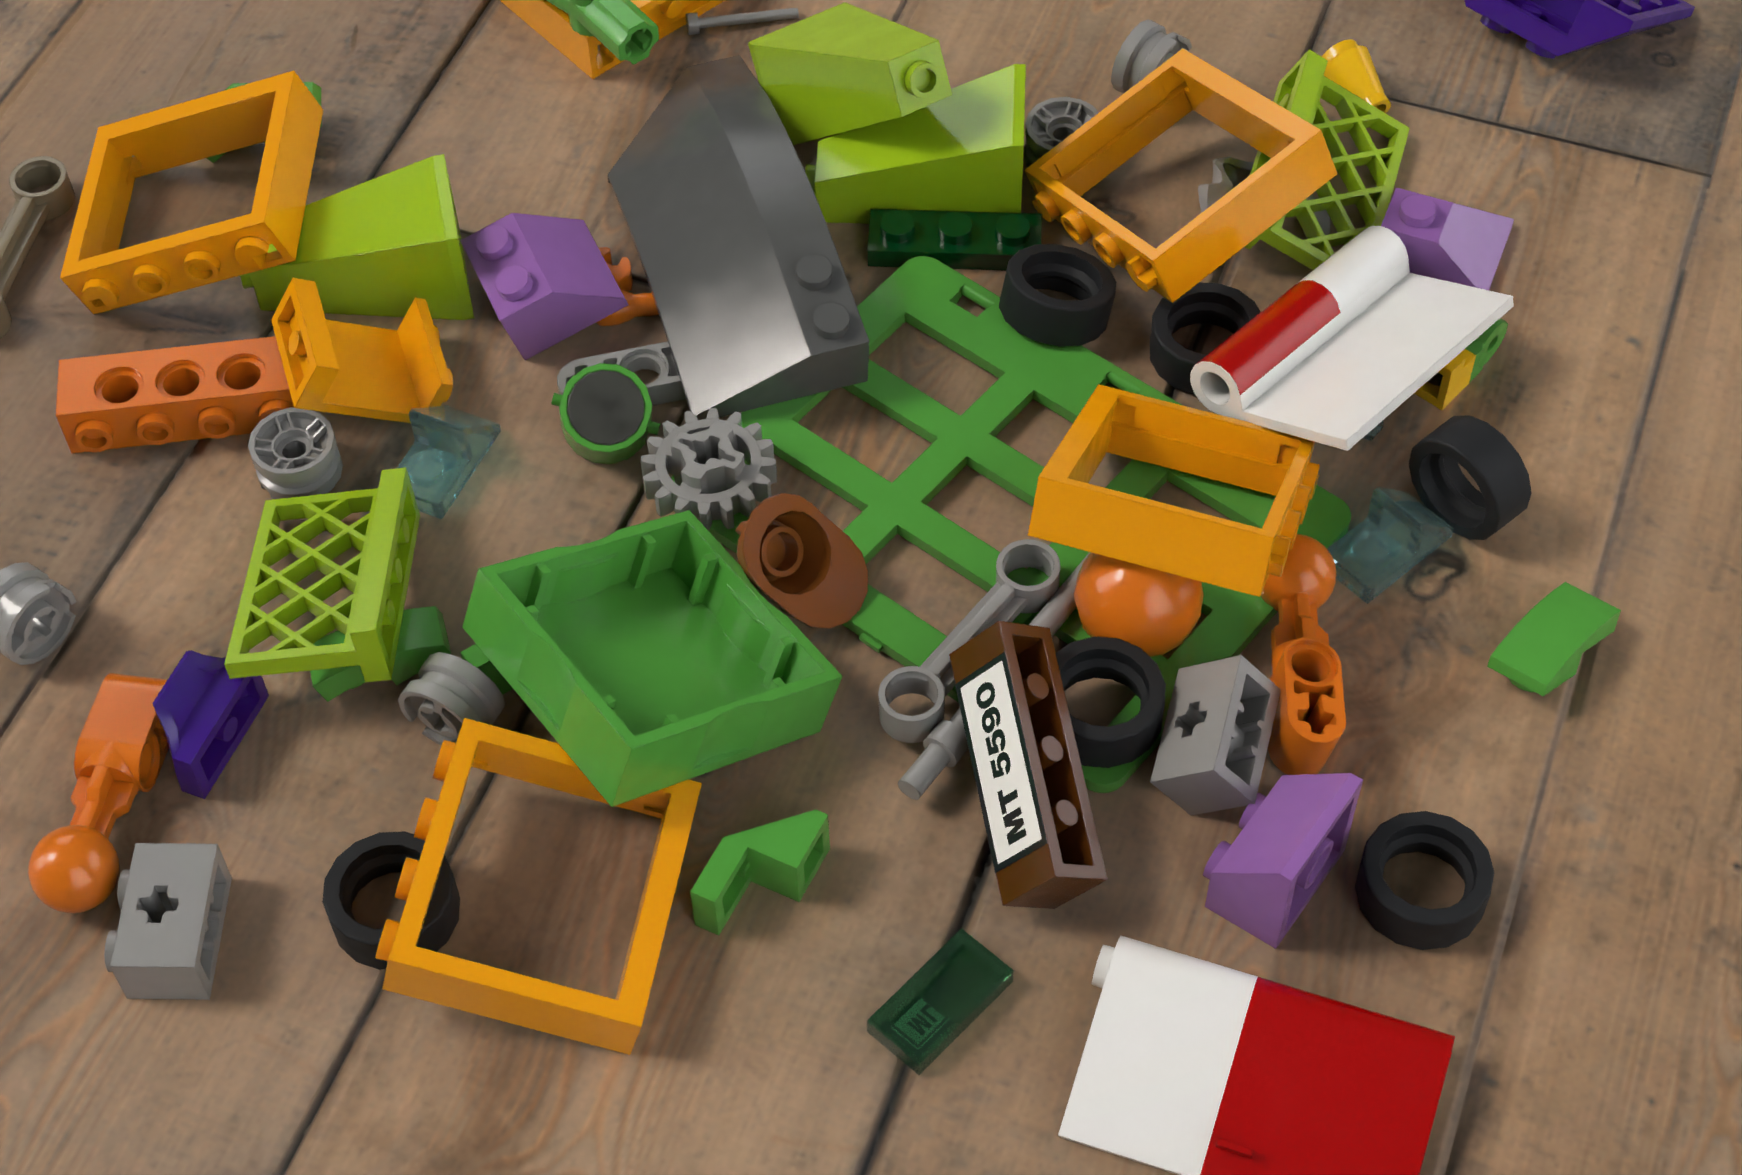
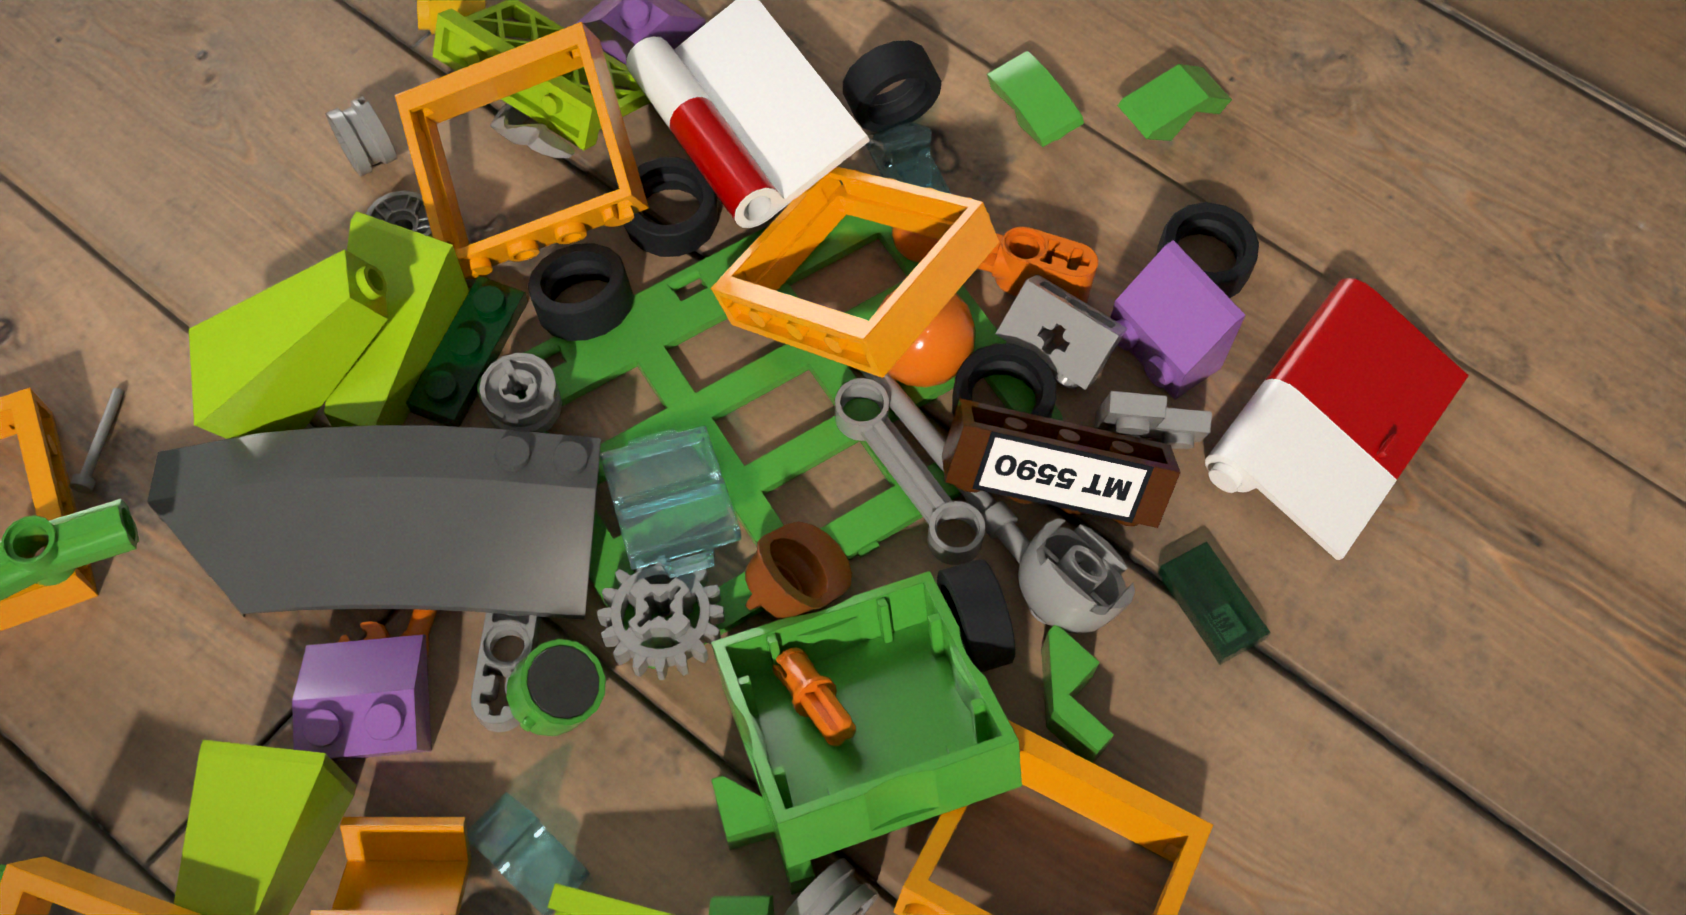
camera: 75 degrees left, 10 degrees up
(662, 613) = (814, 696): none -> orange axle
(808, 738) = (980, 612): none -> black tyre
(838, 433) = (670, 500): none -> clear light blue piece
(895, 820) = (1073, 579): none -> light grey cylinder
(909, 284) = (519, 373): none -> light grey wheel
(1130, 845) = (1150, 418): none -> light grey plate
(1626, 778) = (1171, 100): none -> bright green slope

